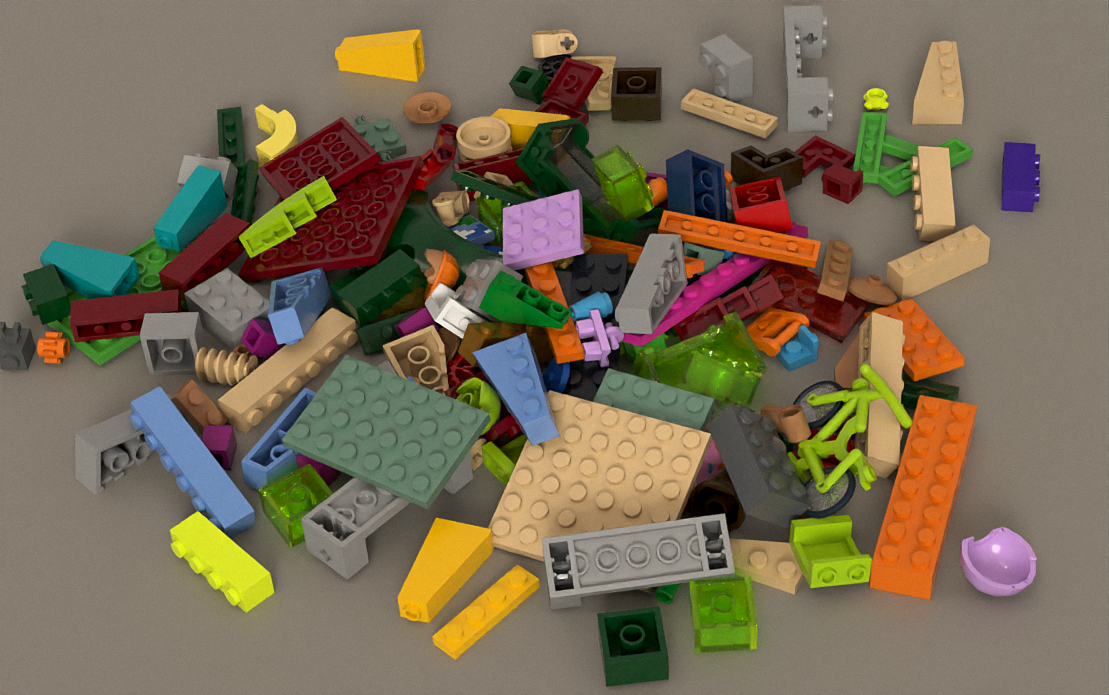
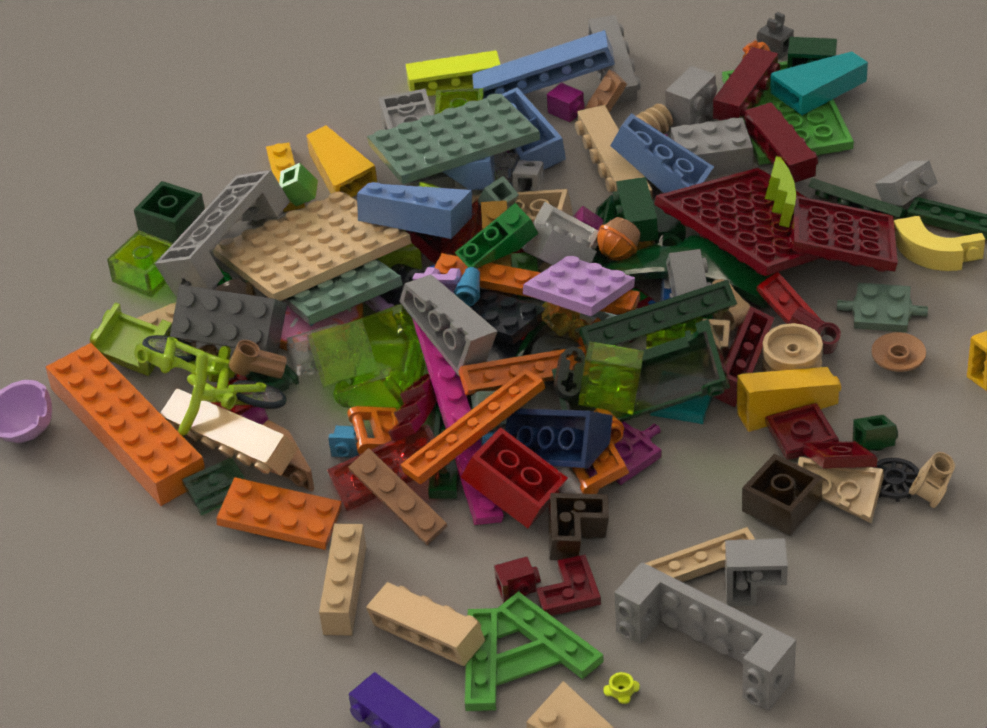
camera: 125 degrees right, 0 degrees up
(192, 209) = (852, 152): teal slope -> none
(445, 364) = (499, 191): none -> sand green brick
(456, 211) = (686, 271): none -> light grey brick
(519, 553) = (298, 184): none -> bright green brick
(635, 210) = (564, 372): none -> pearl dark grey beam
(872, 290) = (375, 513): medium nougat dish -> none

